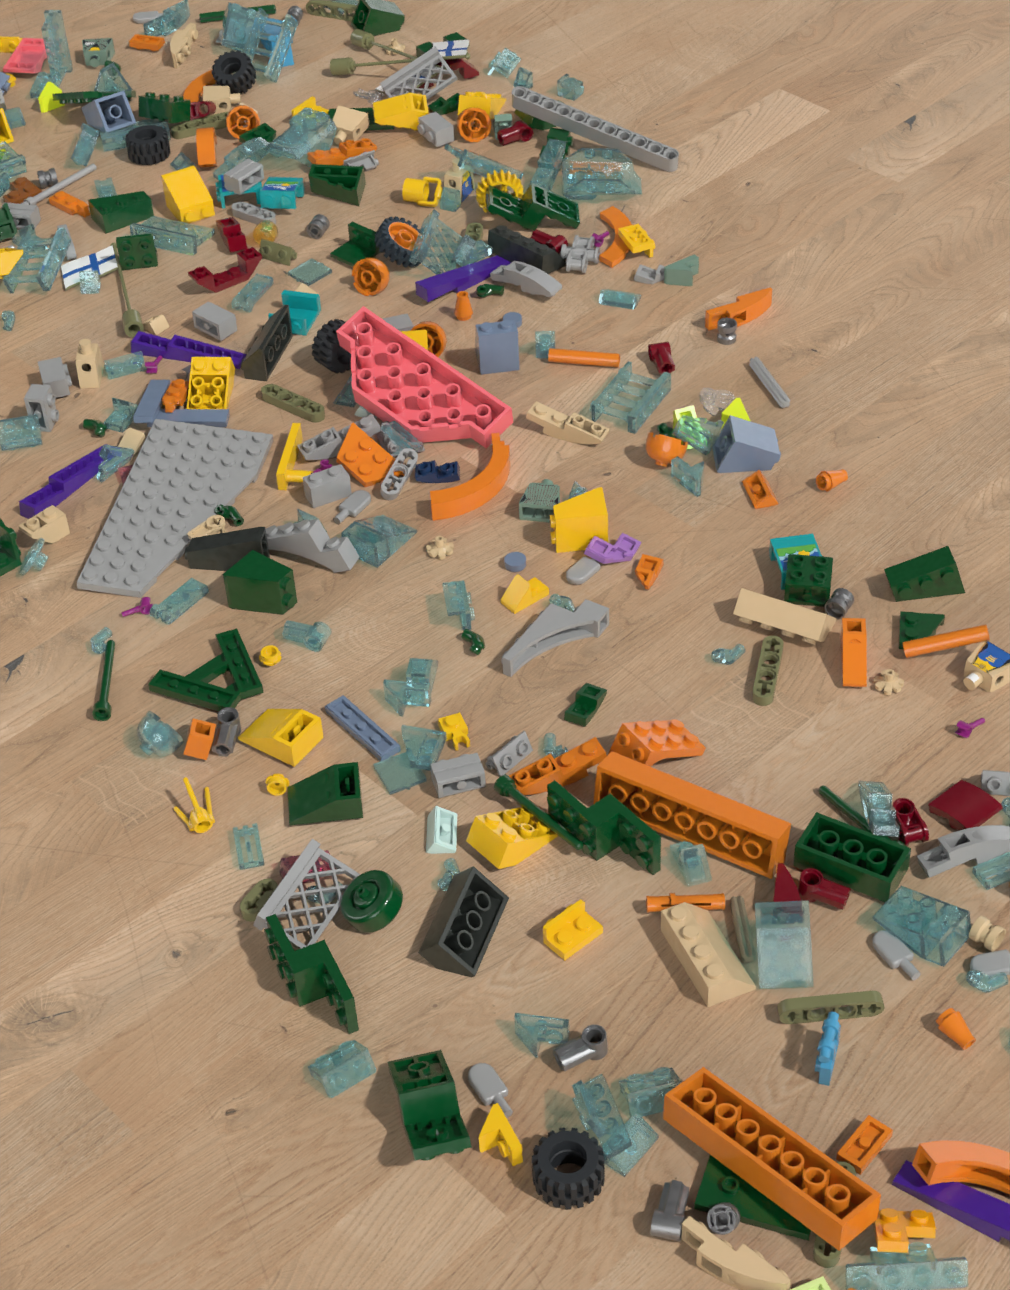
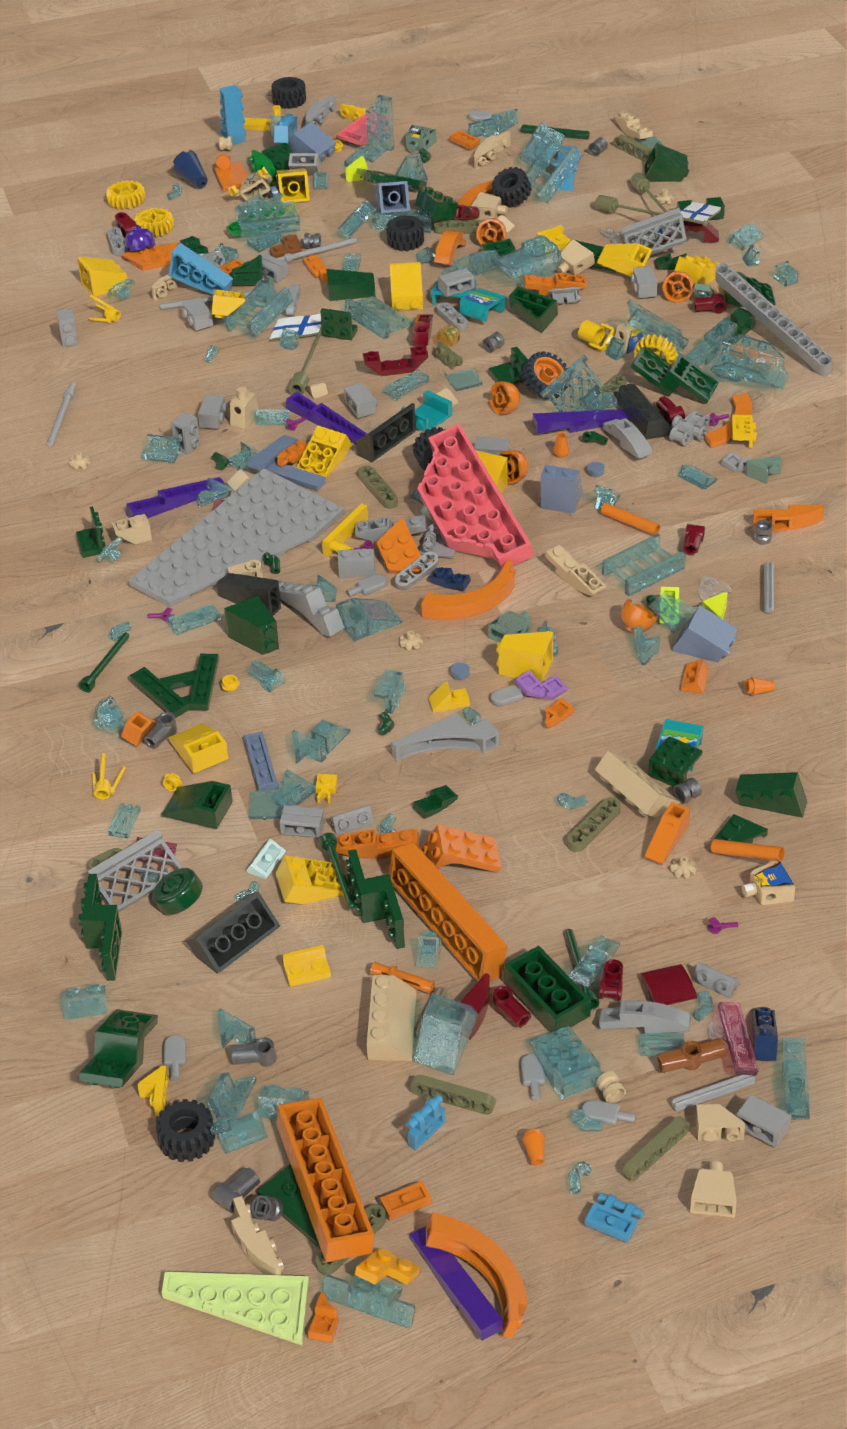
camera: 25 degrees right, 0 degrees up
(401, 436) = (436, 541): clear light blue tile -> none

